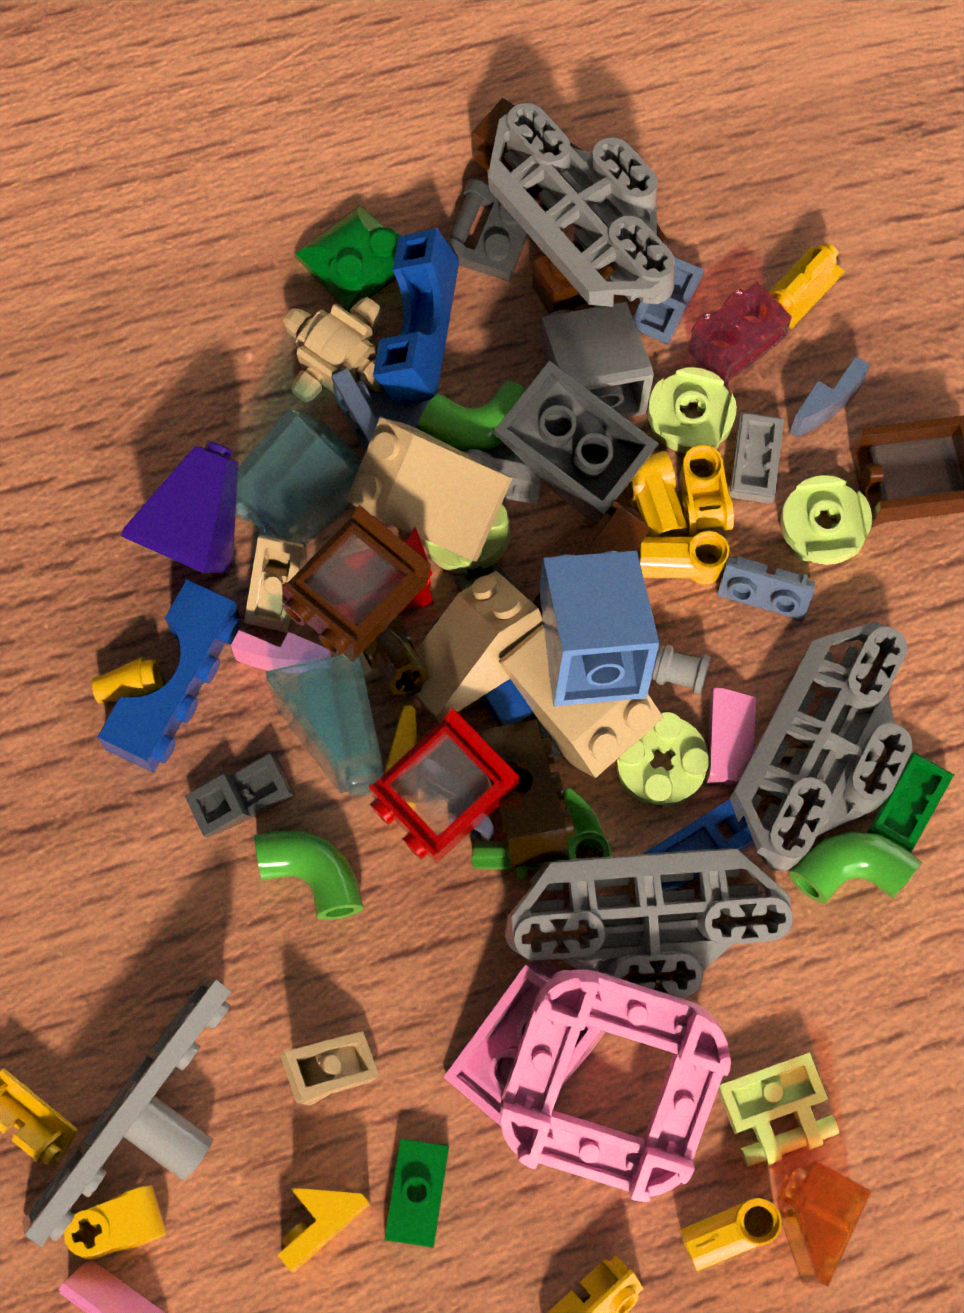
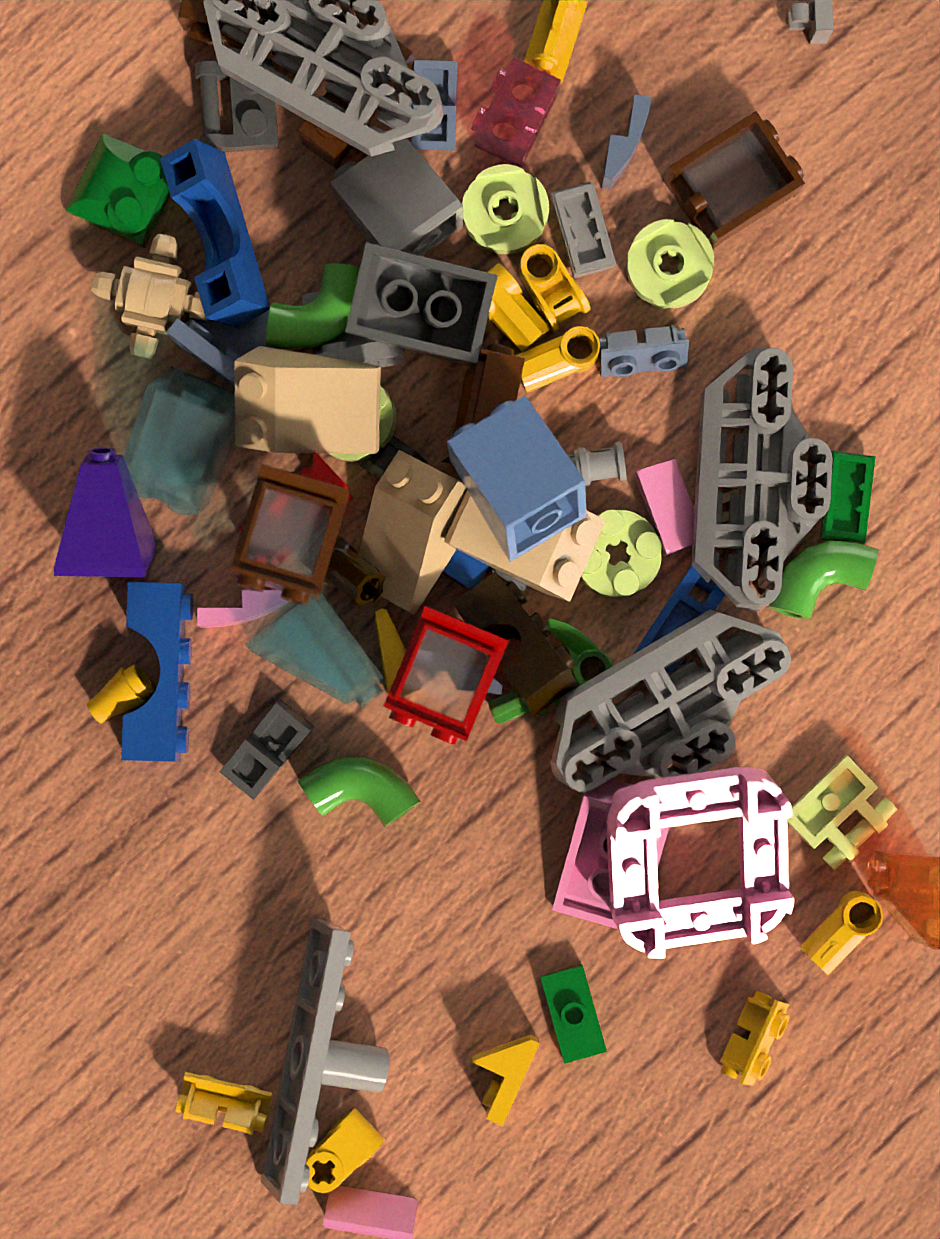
camera: 25 degrees left, 15 degrees up
(273, 565) = (206, 549): tan slope -> none
(329, 1067) = (456, 948): tan slope -> none

